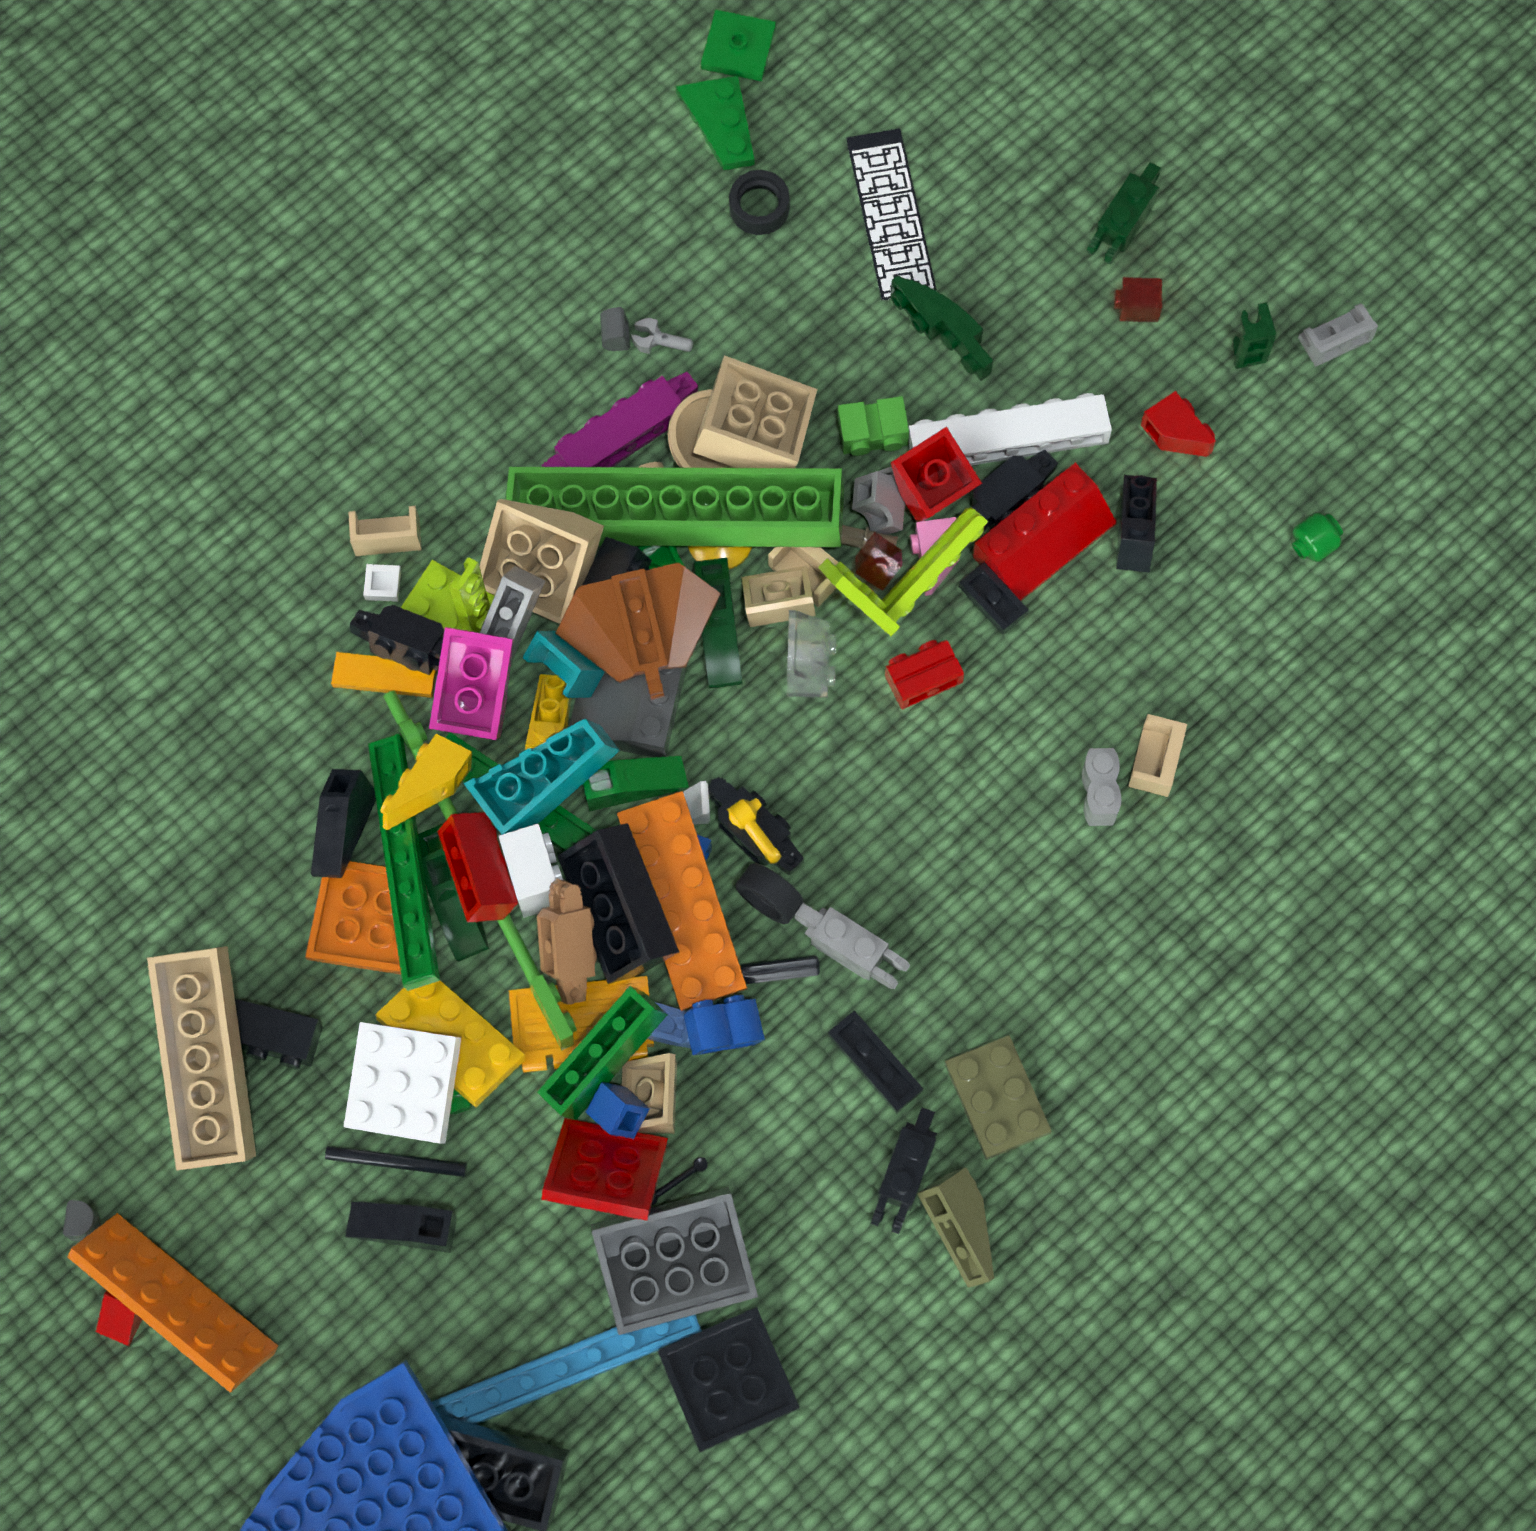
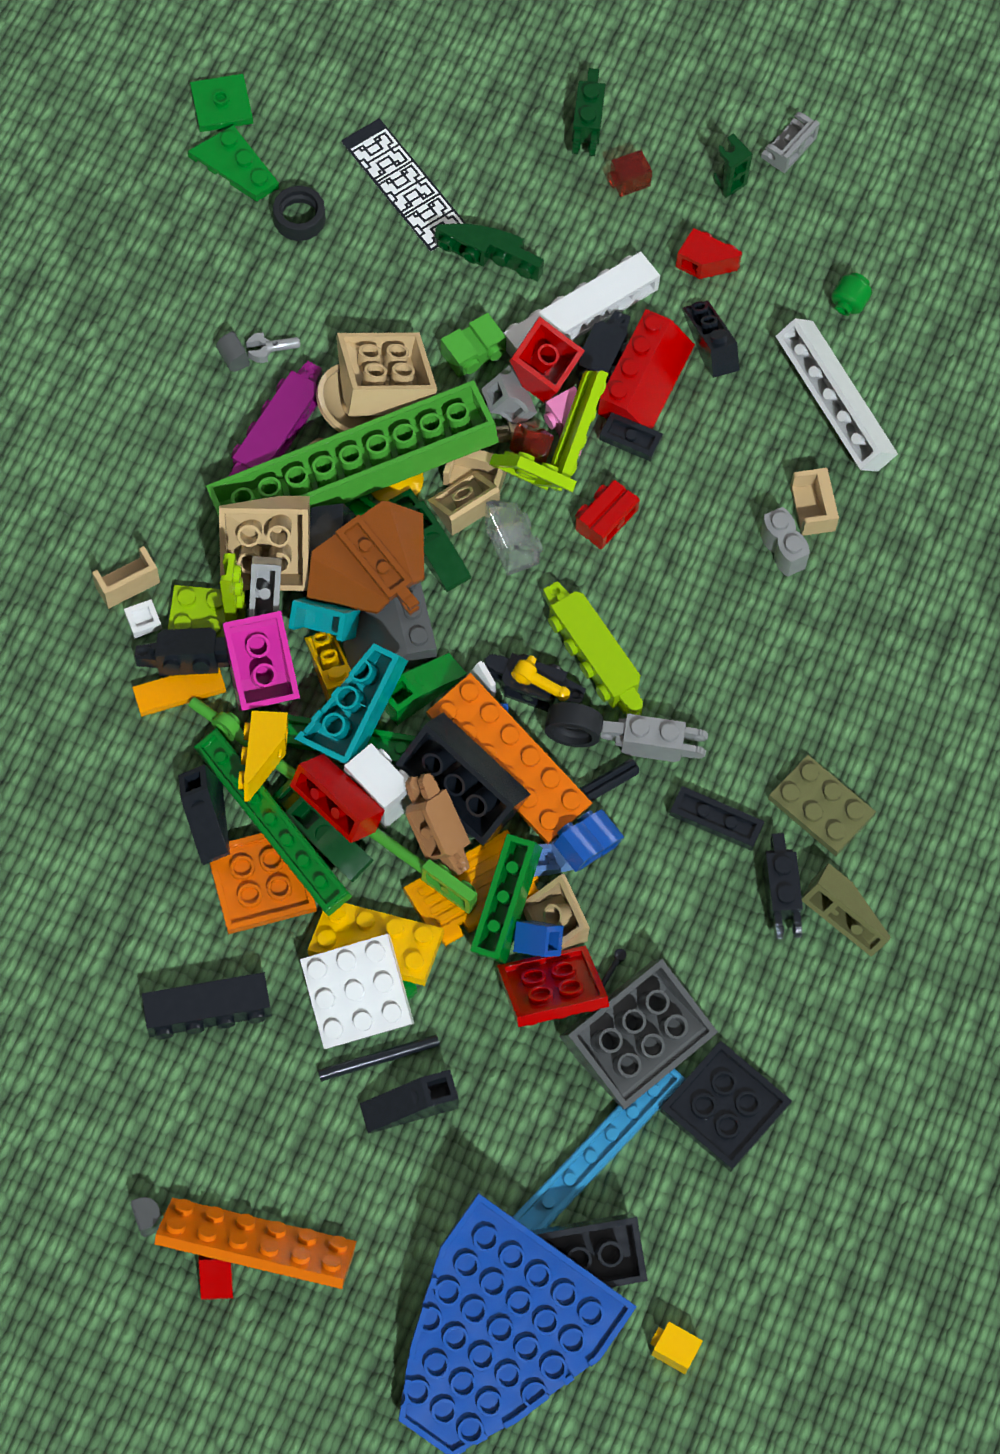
camera: 30 degrees left, 5 degrees down
(201, 1058) = (188, 1039): tan brick -> none
(838, 818) = (595, 648): none -> lime hinge
(1241, 645) = (836, 395): none -> white brick

